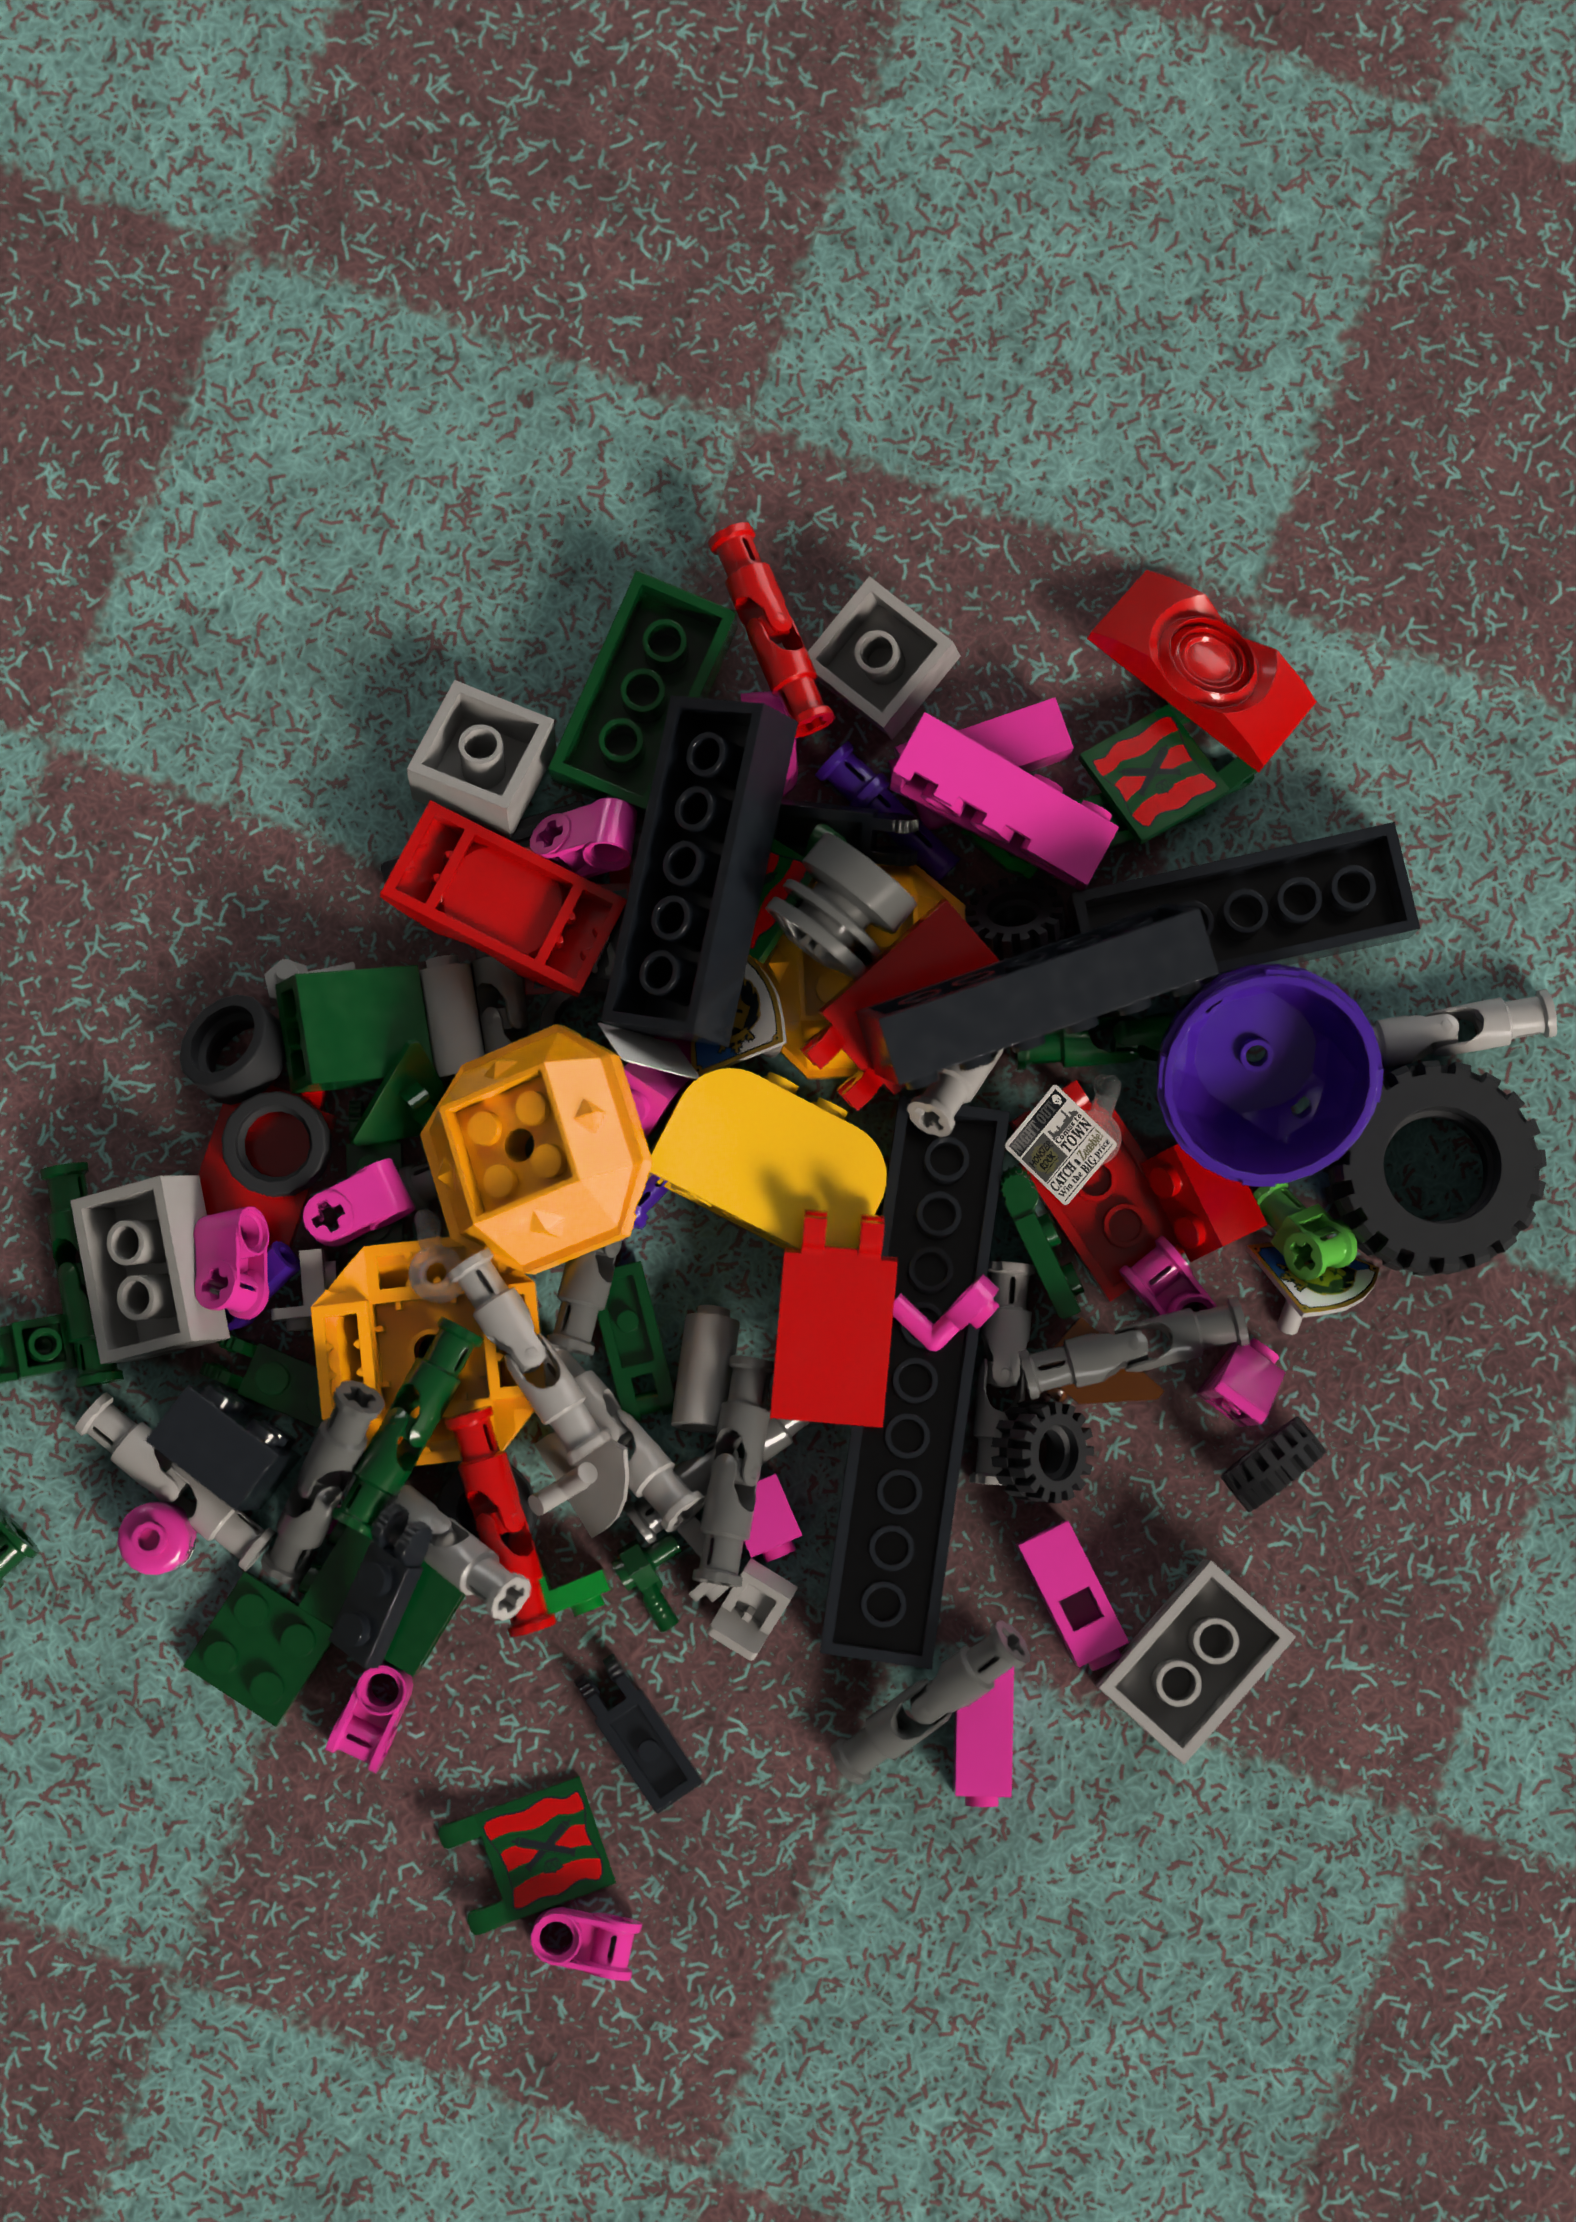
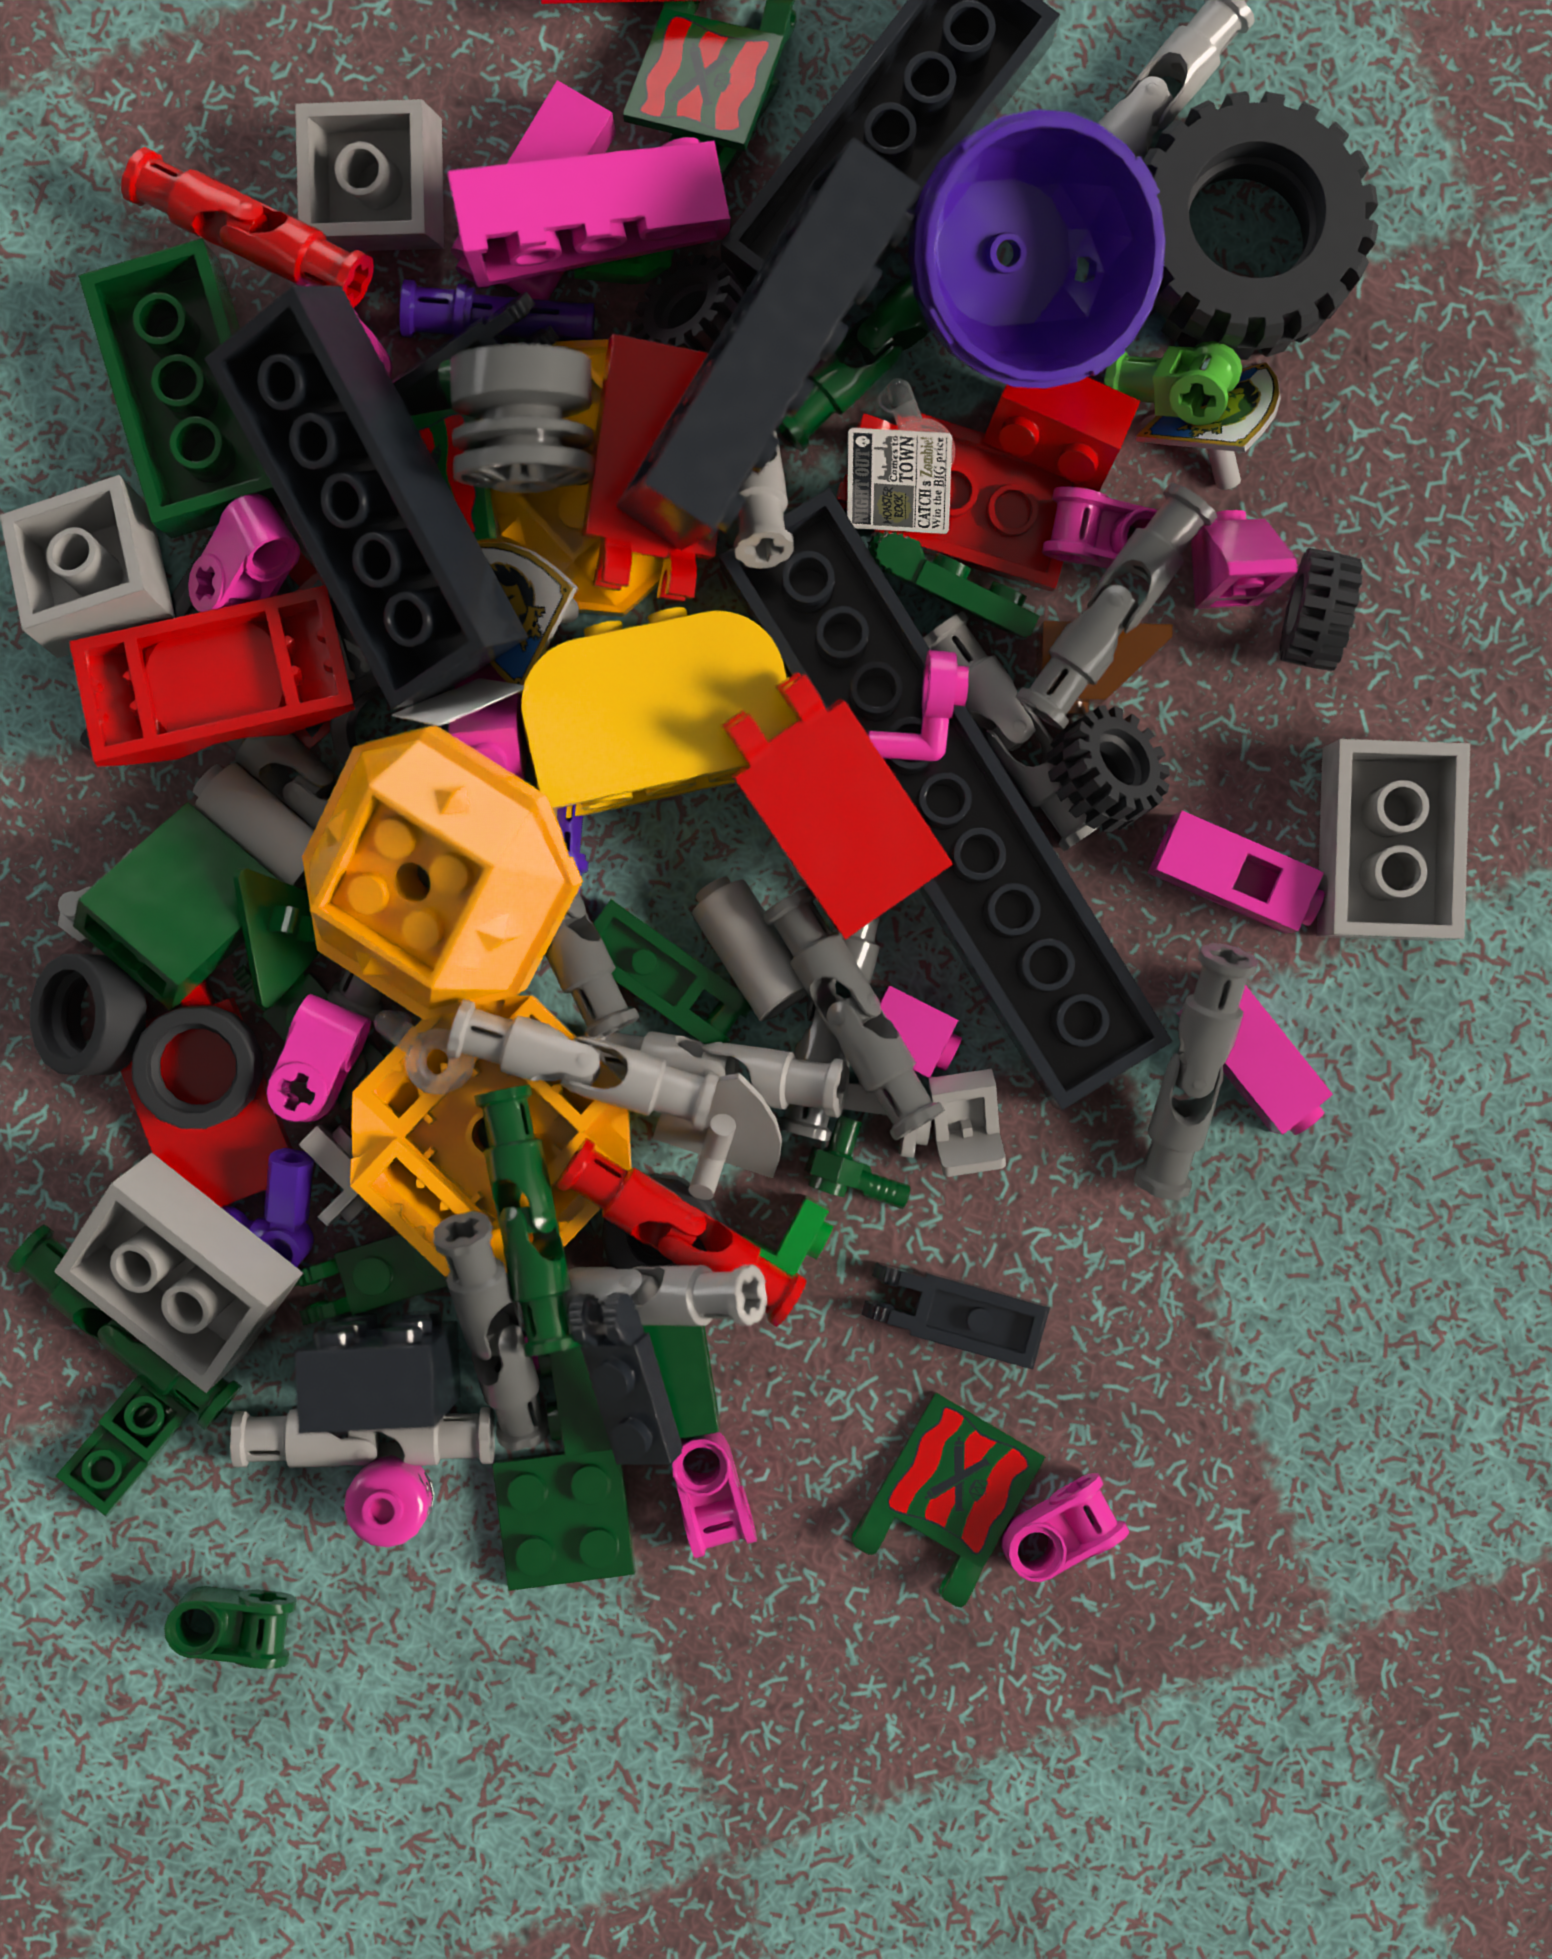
camera: 40 degrees left, 5 degrees up
(228, 1256) = (240, 1203): dark pink piece -> none

